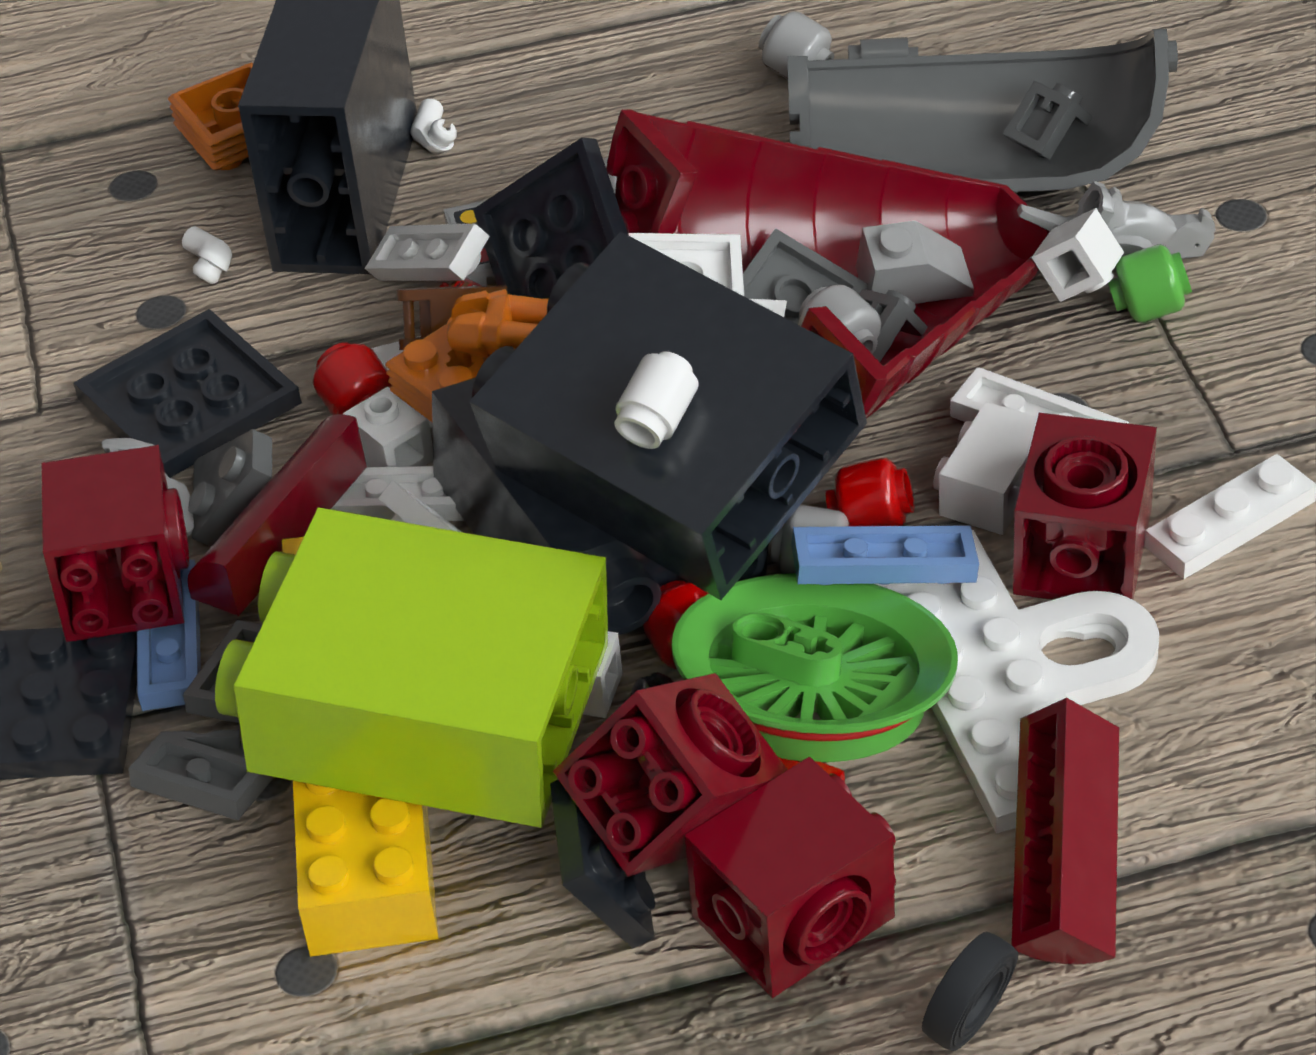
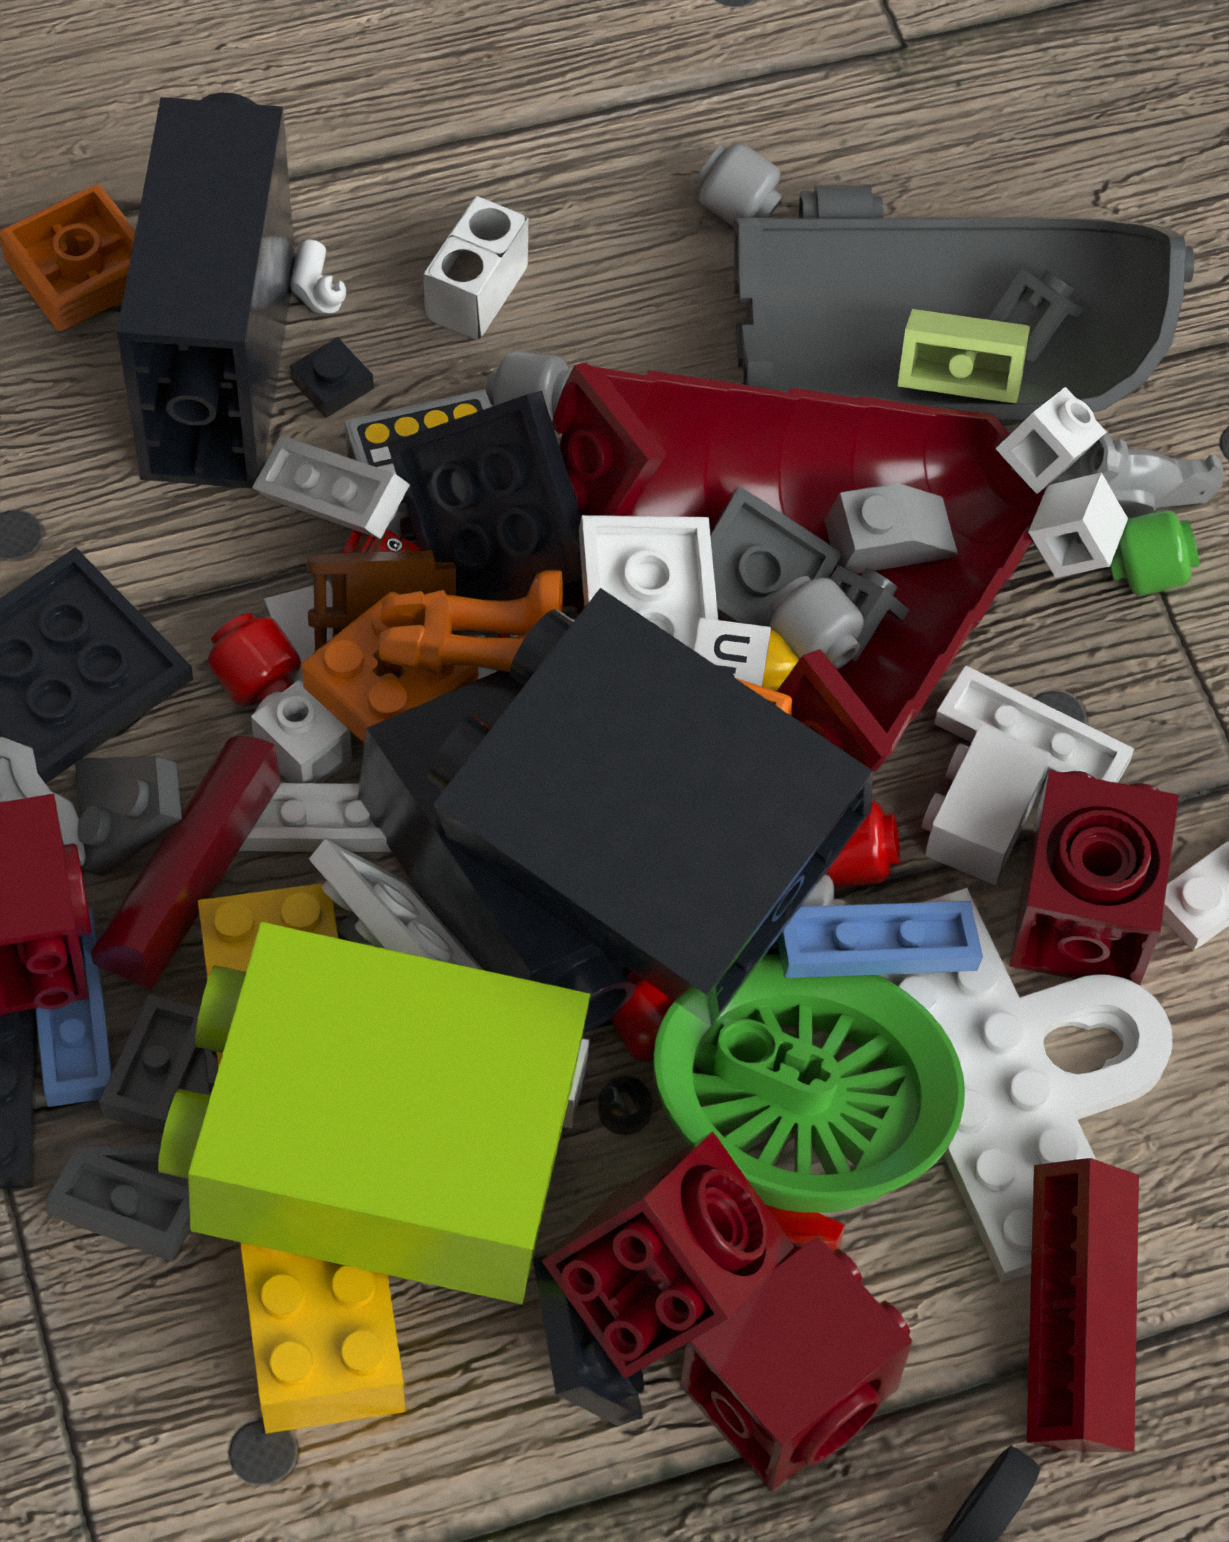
camera: 10 degrees left, 15 degrees up
(213, 254) = (69, 455): white arm -> none
(439, 190) = (331, 377): none -> black plate
(590, 108) = (454, 302): none -> white piece
(655, 399) = (654, 828): white brick -> none
(982, 146) = (963, 356): none -> yellowish green brick
(1052, 187) = (1051, 439): none -> white brick

